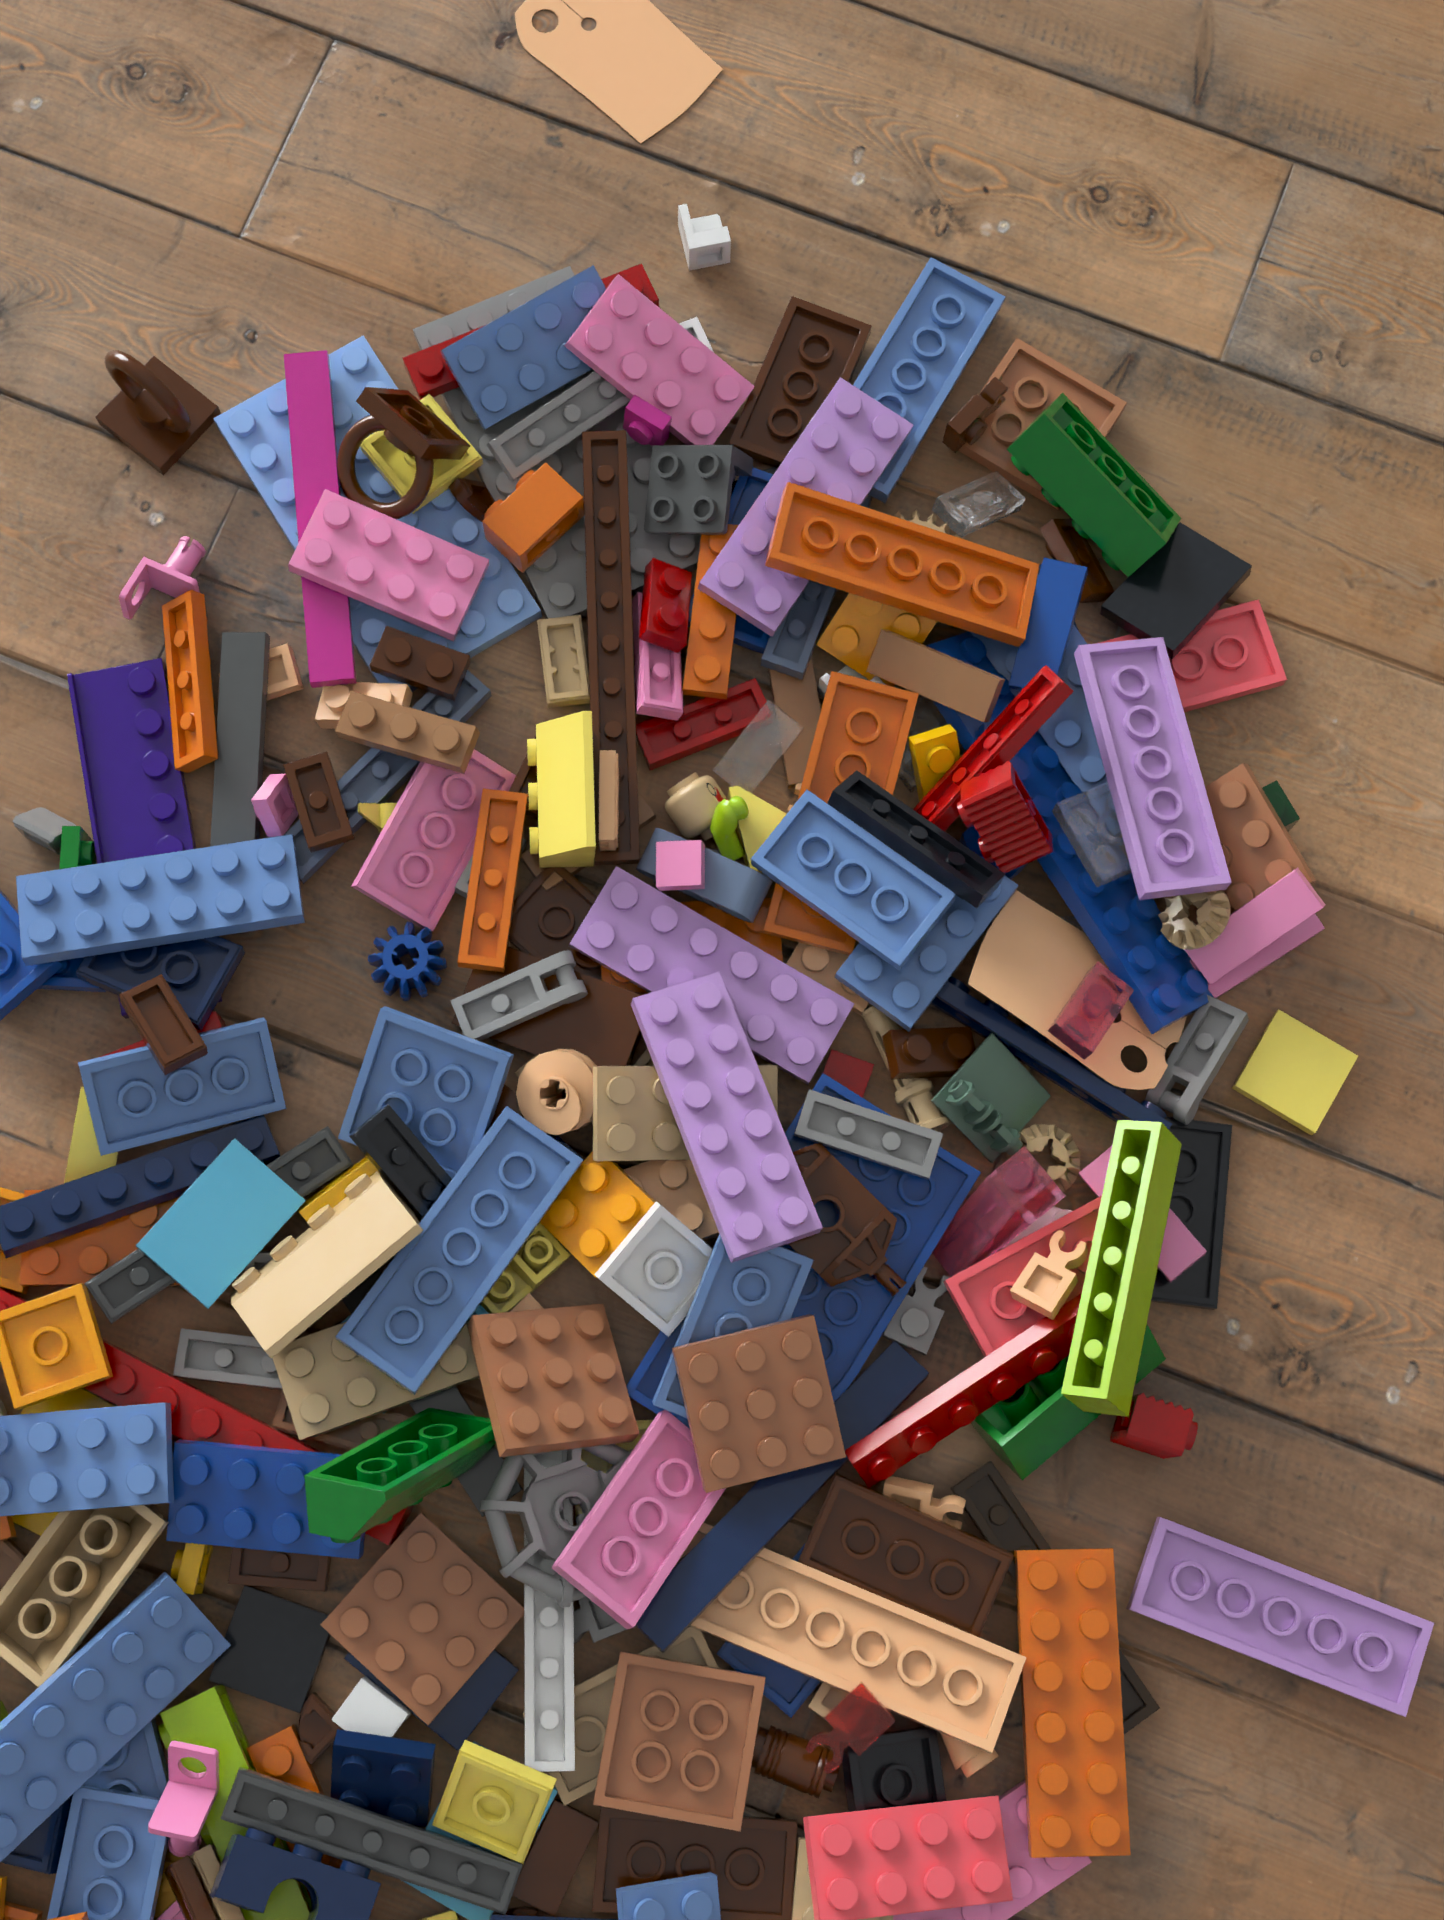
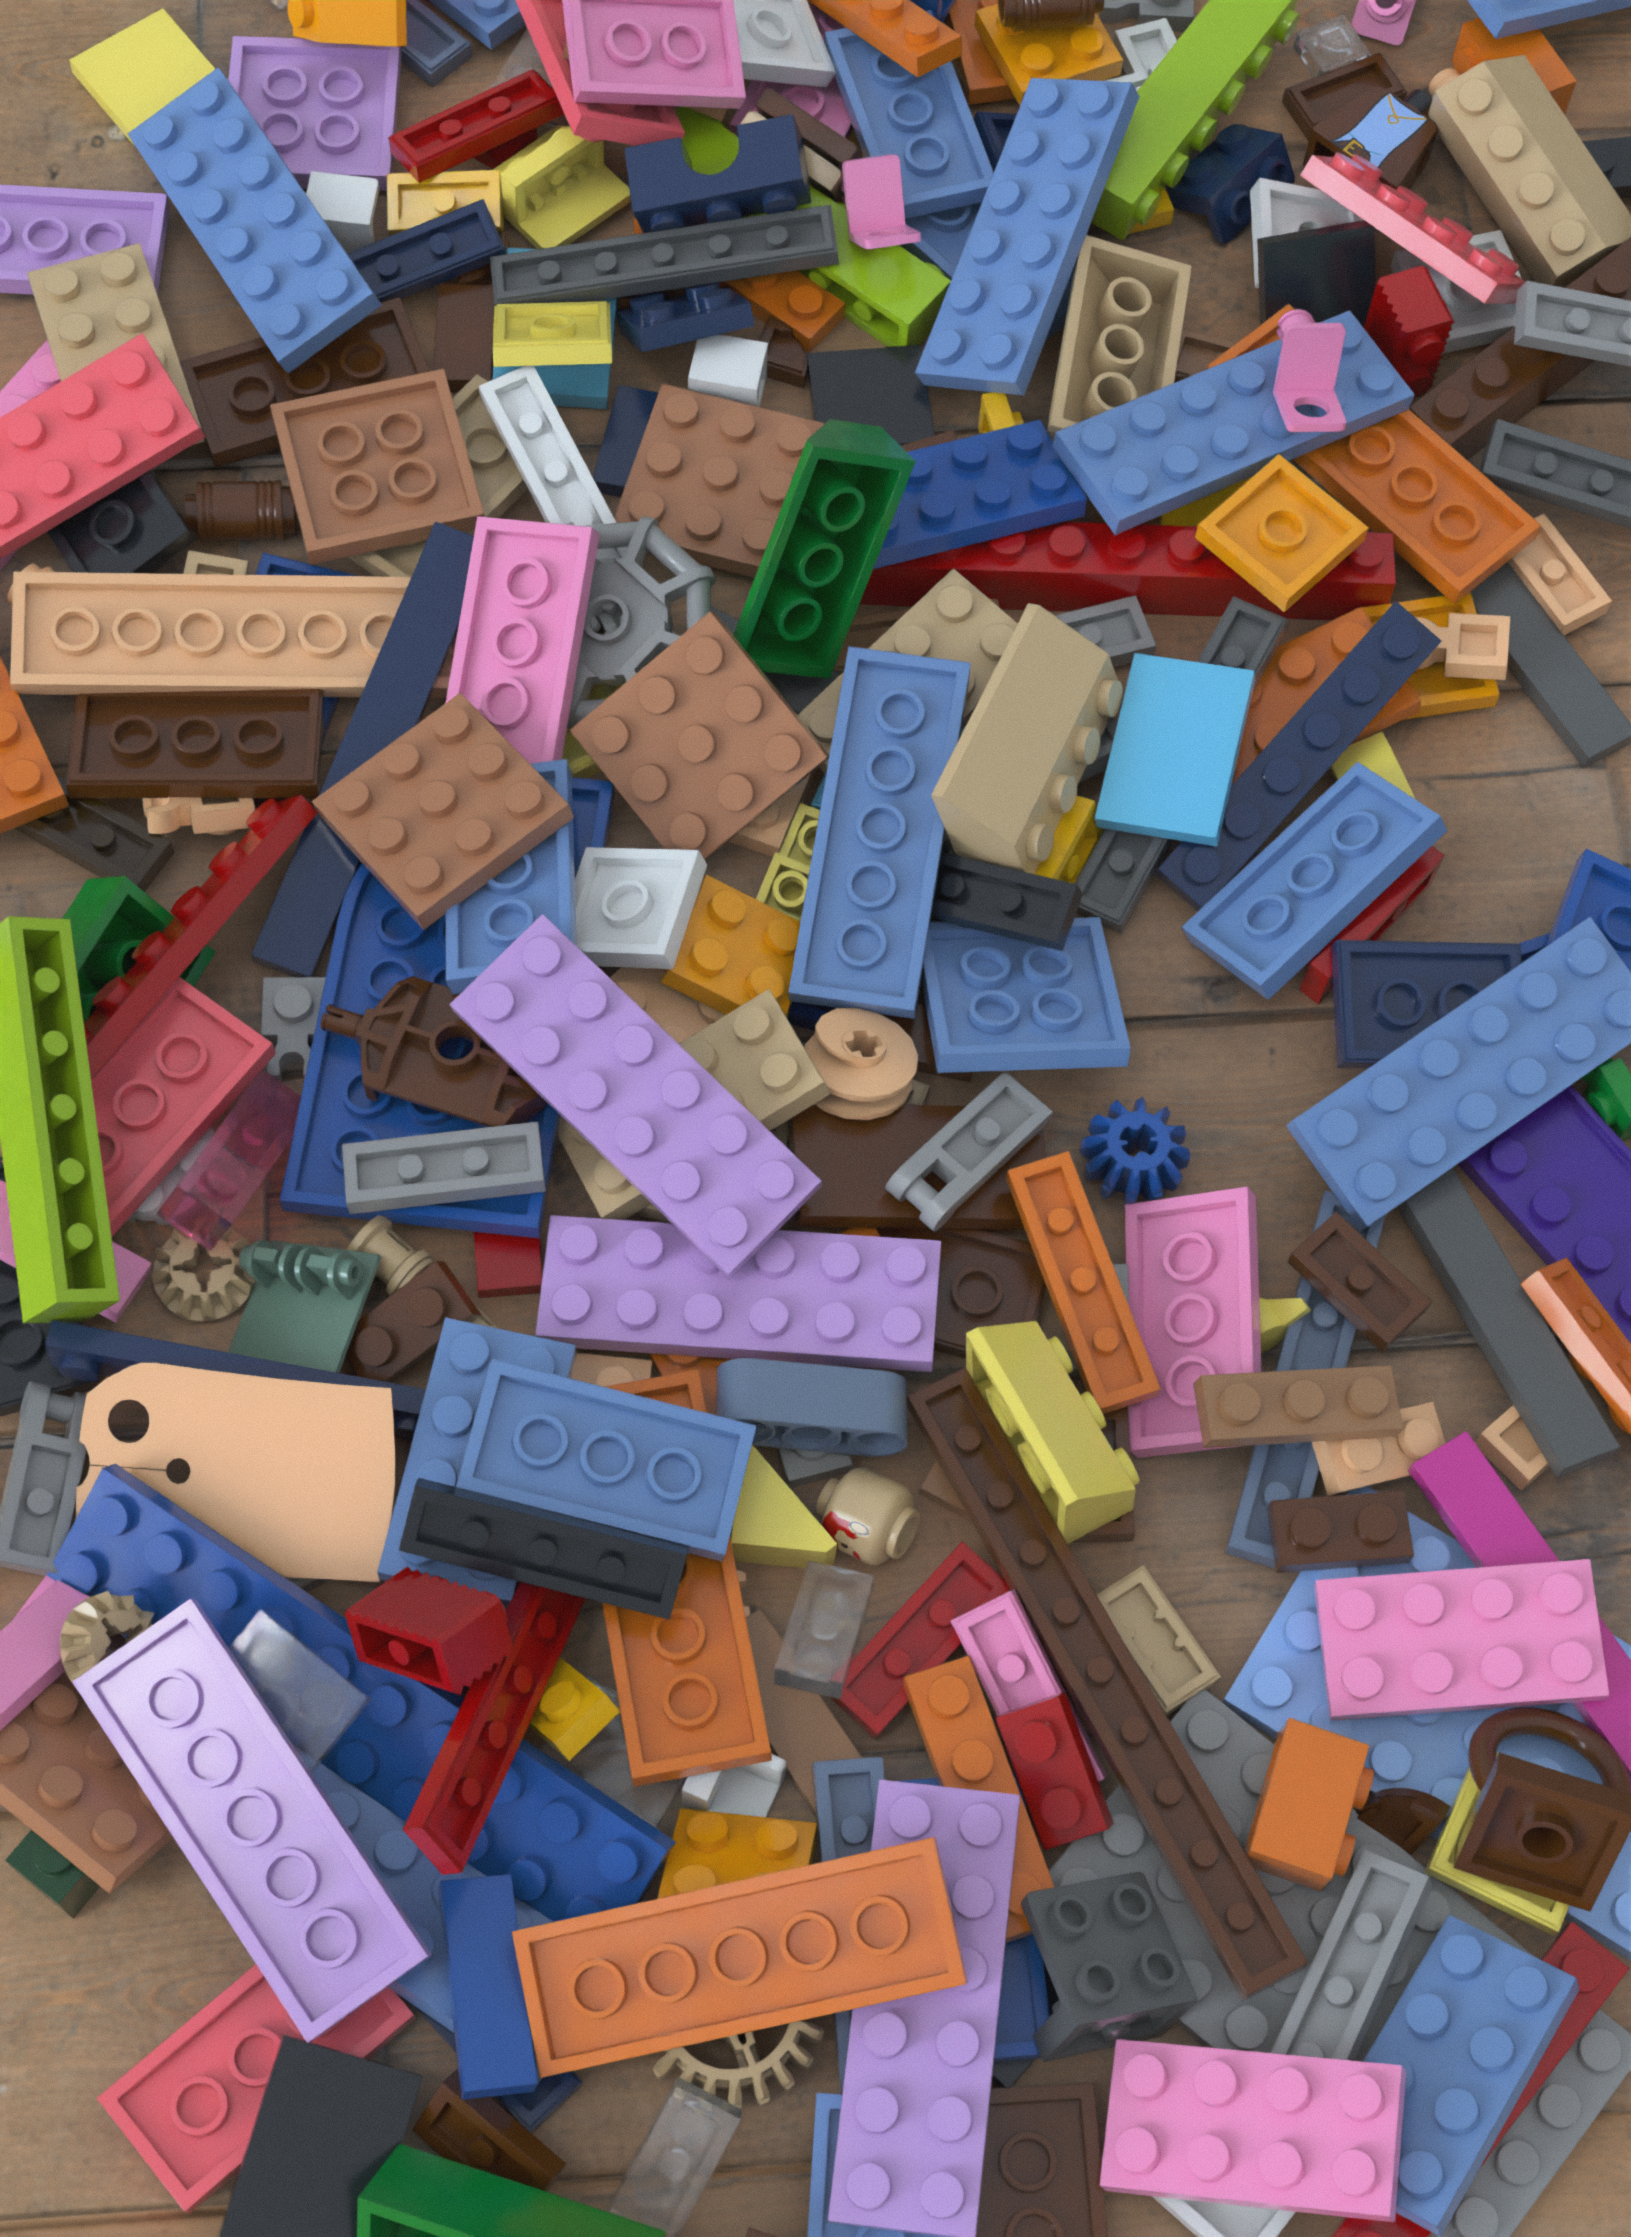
camera: 155 degrees right, 10 degrees down
(163, 1024) = (1376, 911): reddish brown tile -> none
(275, 805) = (1417, 1256): bright pink plate -> none
(608, 800) = (986, 1434): light nougat tile -> none
(646, 423) = (1225, 2028): dark pink plate -> none
(680, 865) = (846, 1385): bright pink tile -> none
(724, 826) = (815, 1484): lime arm -> none
(855, 1723) = (186, 542): clear red plate -> none
(935, 675) = (619, 1815): medium nougat tile -> none
(1048, 1281) = (141, 1078): light nougat plate -> none
(1091, 1010) = (209, 1438): clear pink plate -> none

